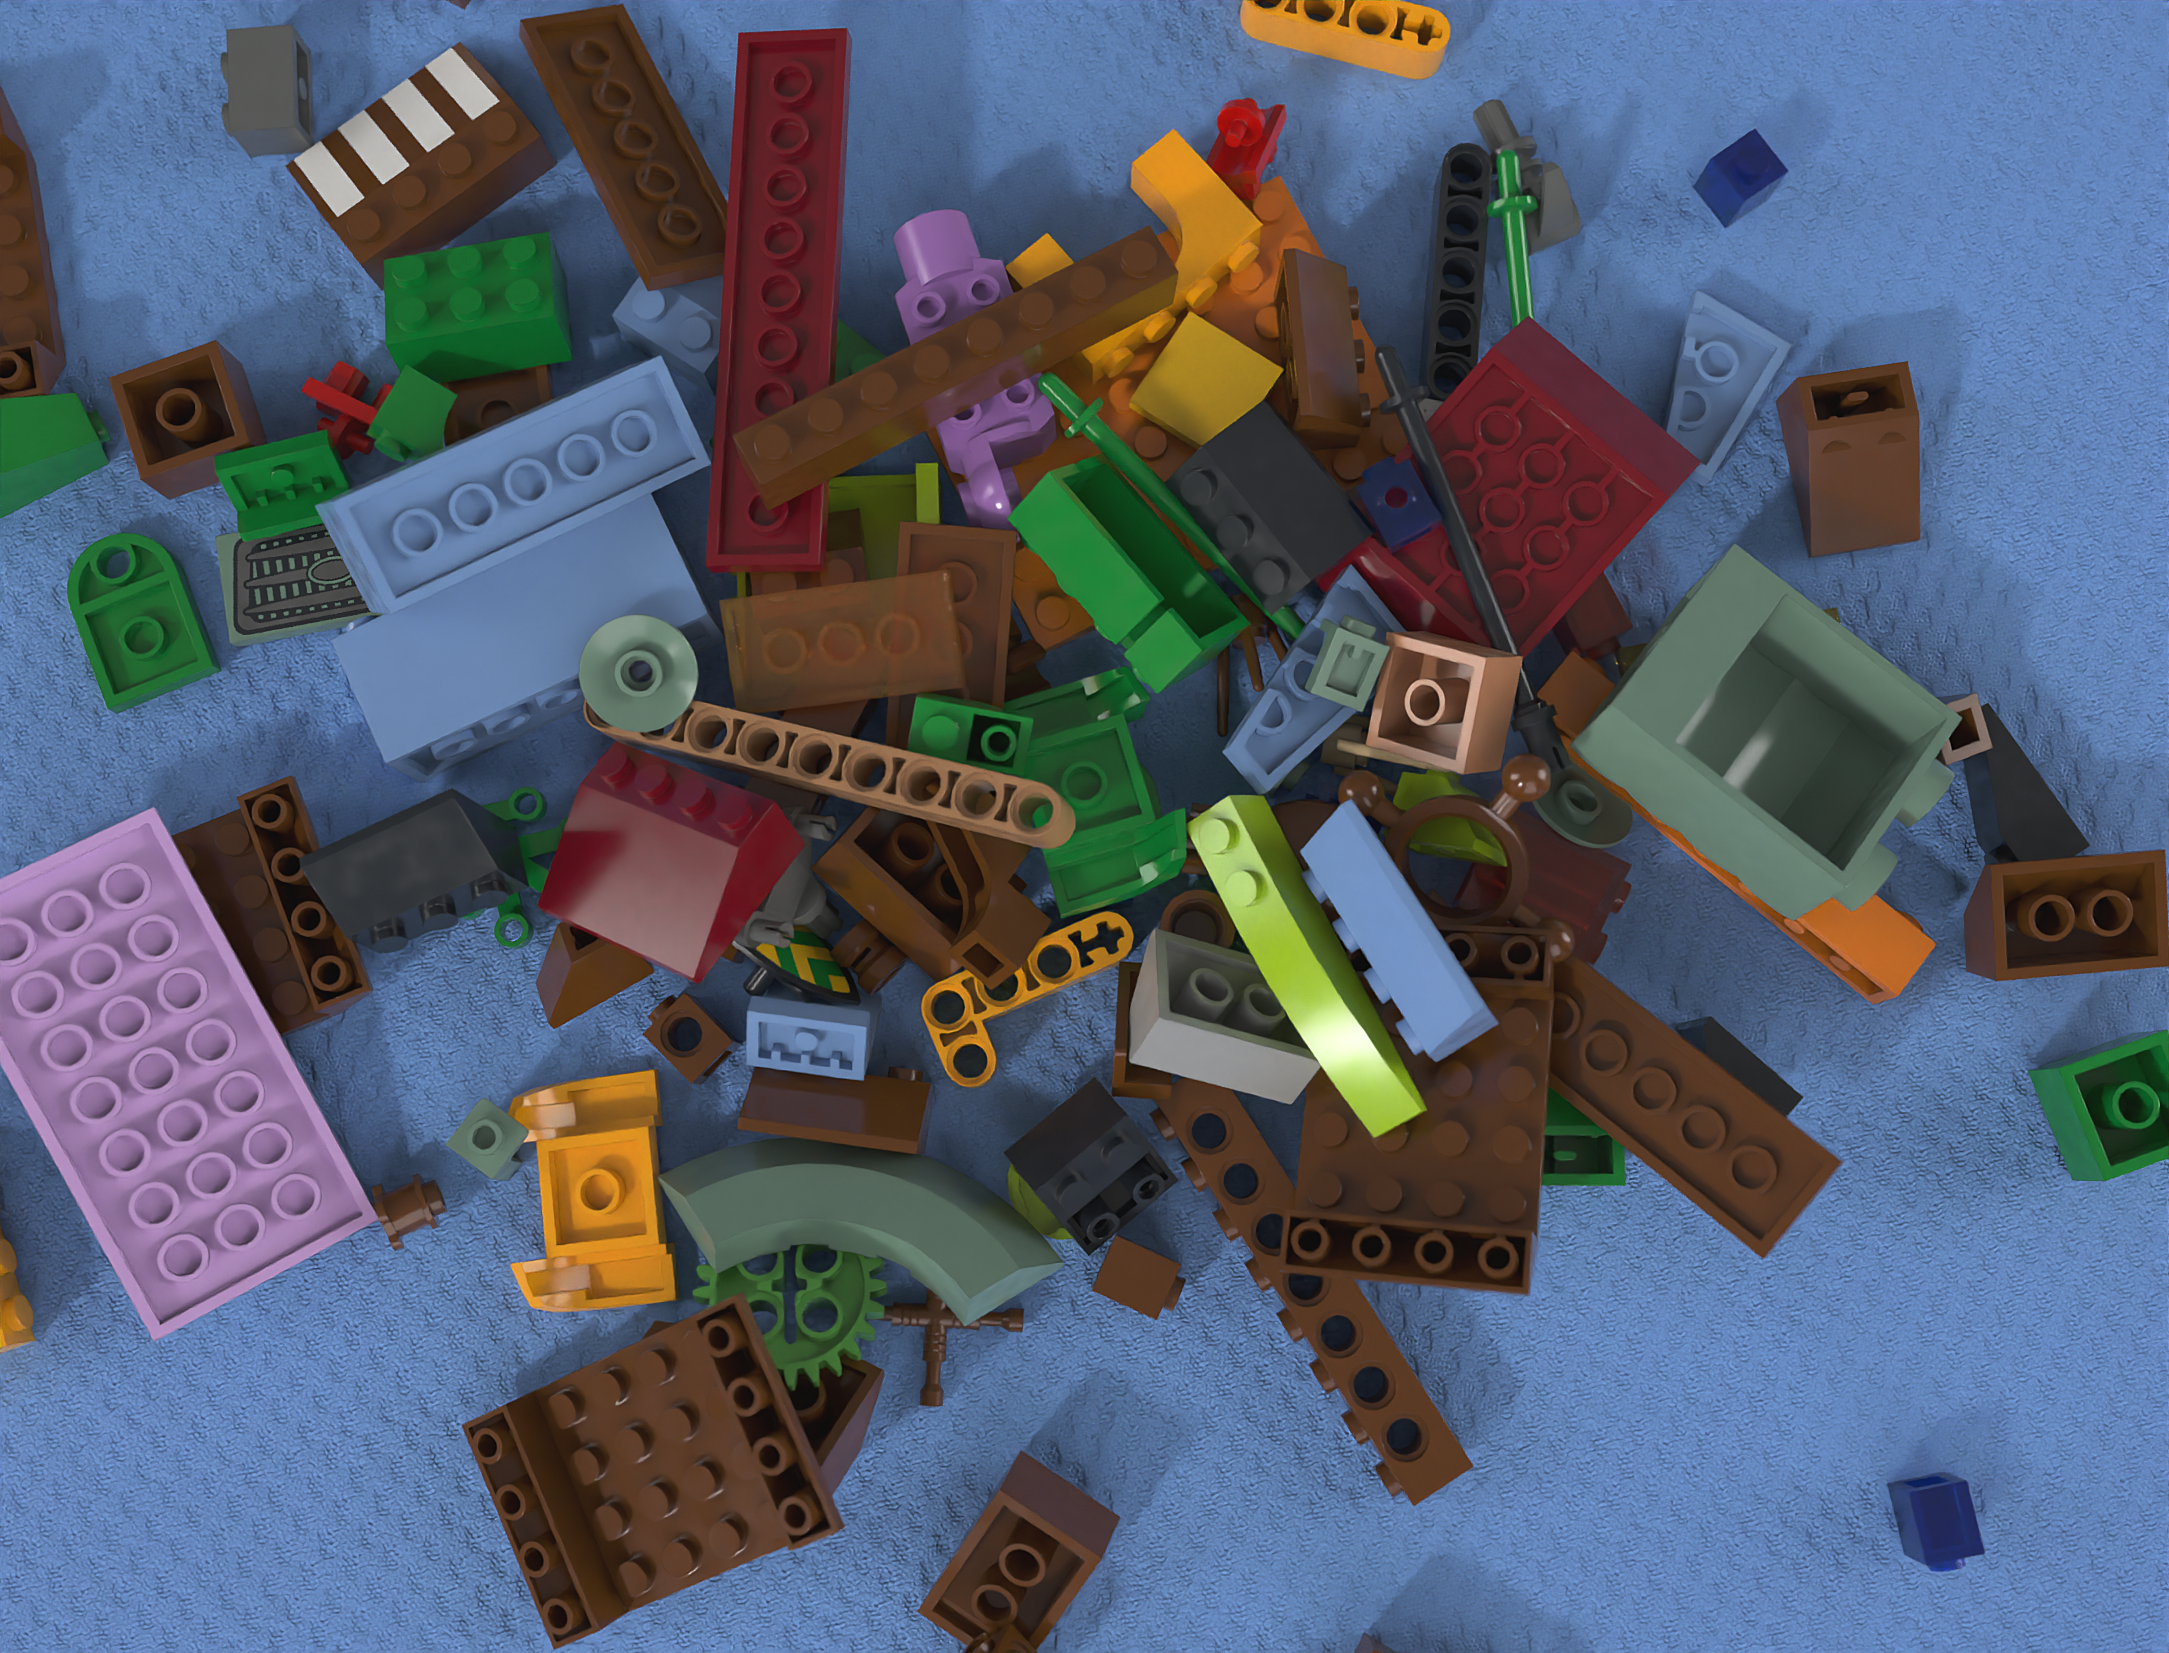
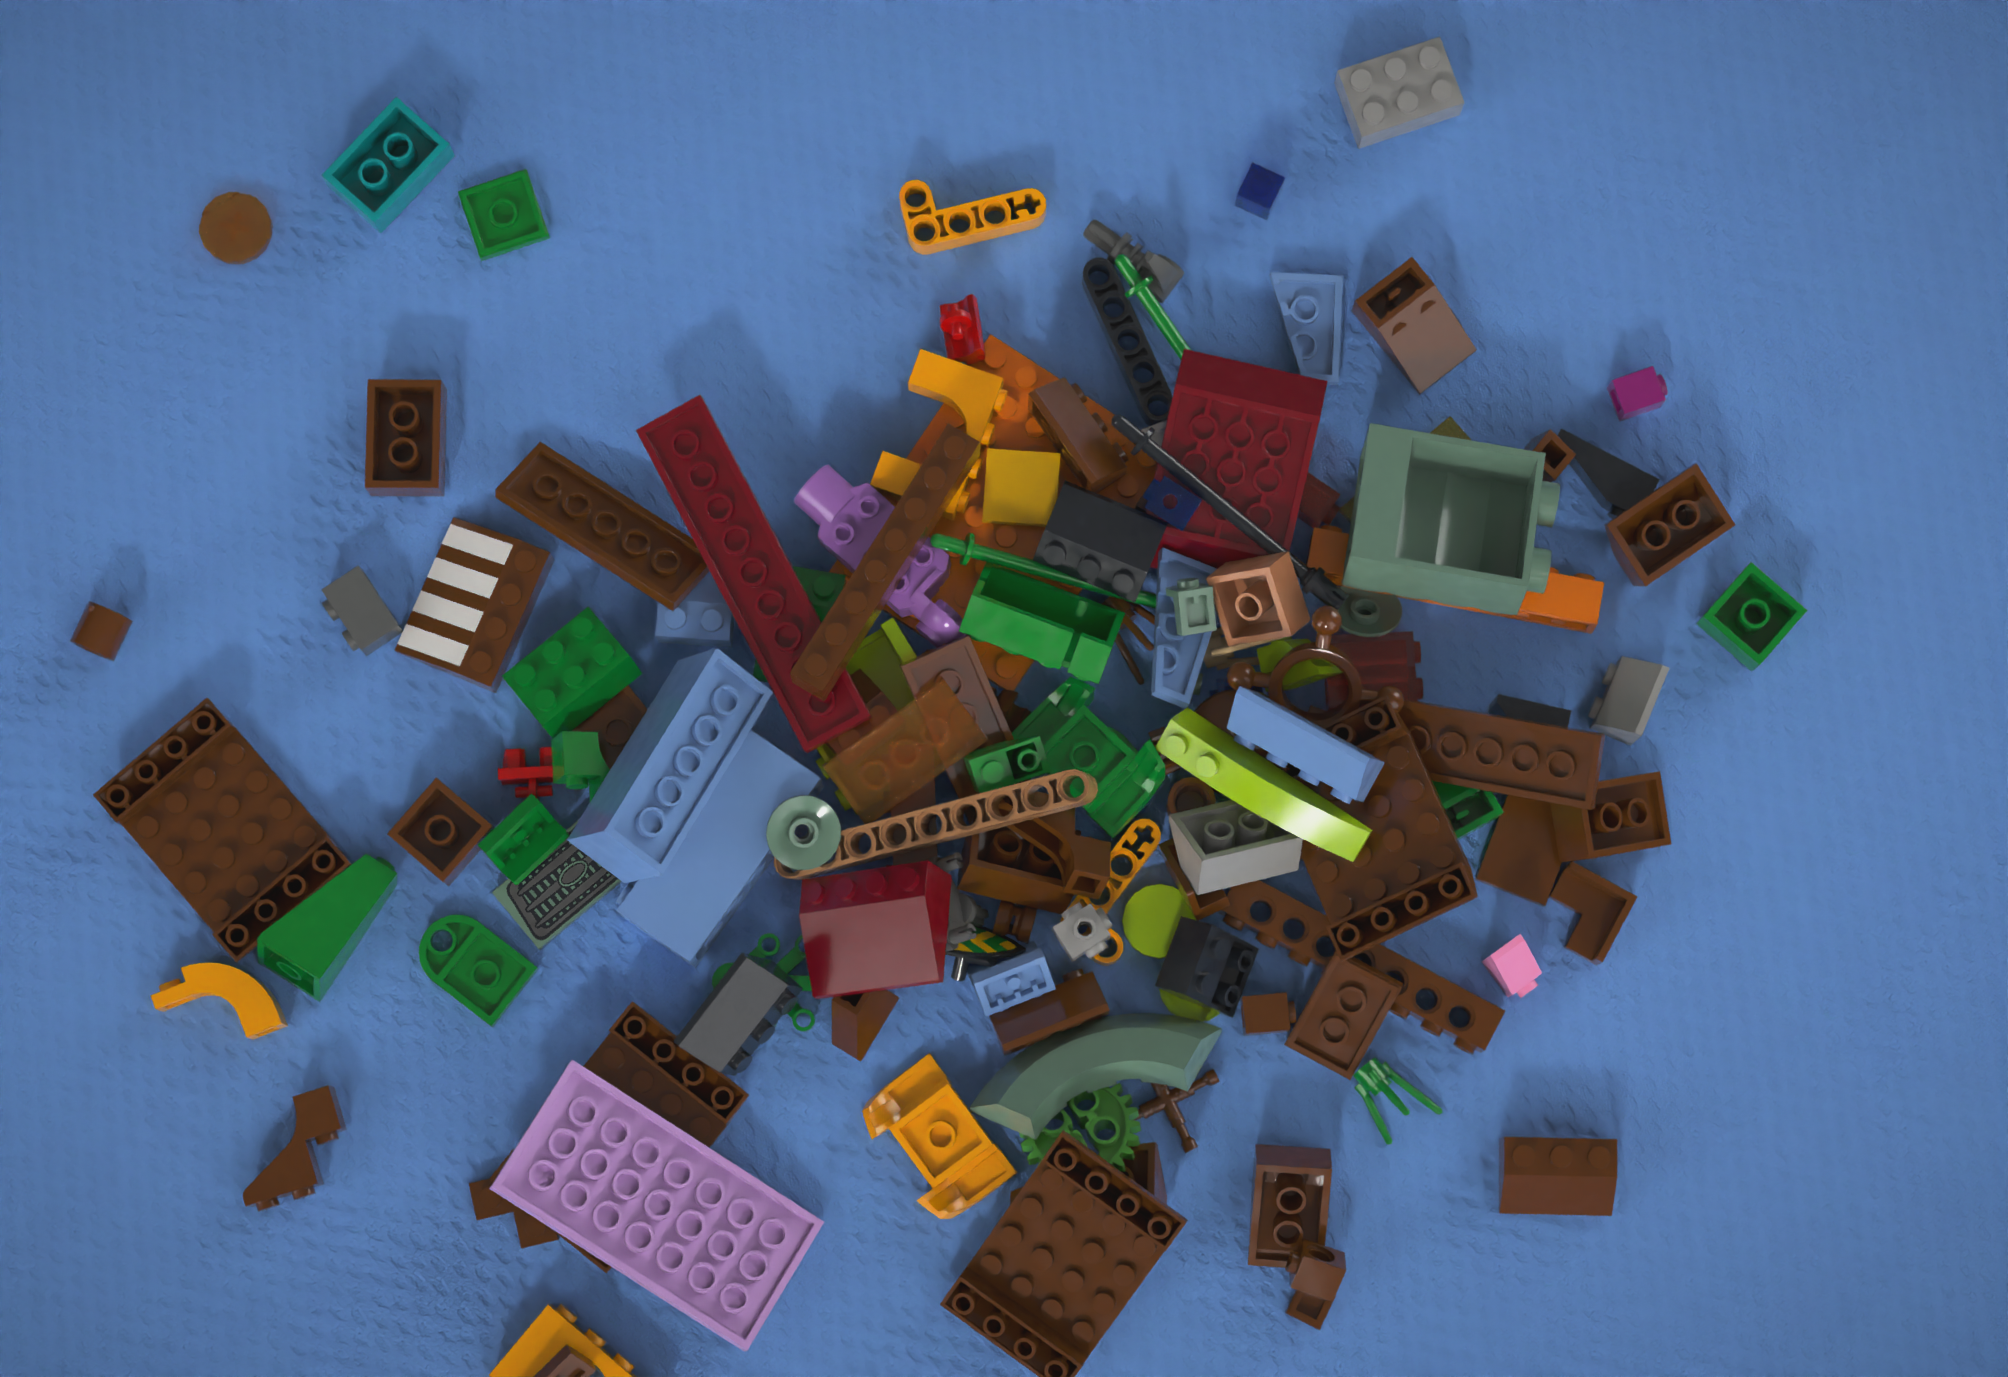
camera: 30 degrees left, 0 degrees up
(408, 1208) = (838, 1206): reddish brown brick -> none
(490, 1140) = (864, 1140): sand green bracket -> none
(712, 1051) = (952, 1035): reddish brown brick -> none
(921, 1017) = (1077, 944): none -> light grey brick
(1059, 1056) = (1153, 918): none -> lime tile
(1237, 1452) = (1374, 1078): none -> green plant
(1244, 1340) = (1343, 1014): none -> reddish brown tile
(1518, 1407) = (1513, 967): none -> bright pink slope
(1628, 1249) = (1522, 851): none -> reddish brown tile
(1685, 1396) = (1601, 908): none -> reddish brown panel
(1789, 1297) = (1625, 819): none -> reddish brown slope
(1887, 1123) = (1628, 699): none -> light grey slope
(1936, 1520) = (1772, 901): clear blue brick -> none
(1999, 149) = (1399, 92): none -> light grey brick
(2113, 713) = (1637, 393): none -> magenta brick

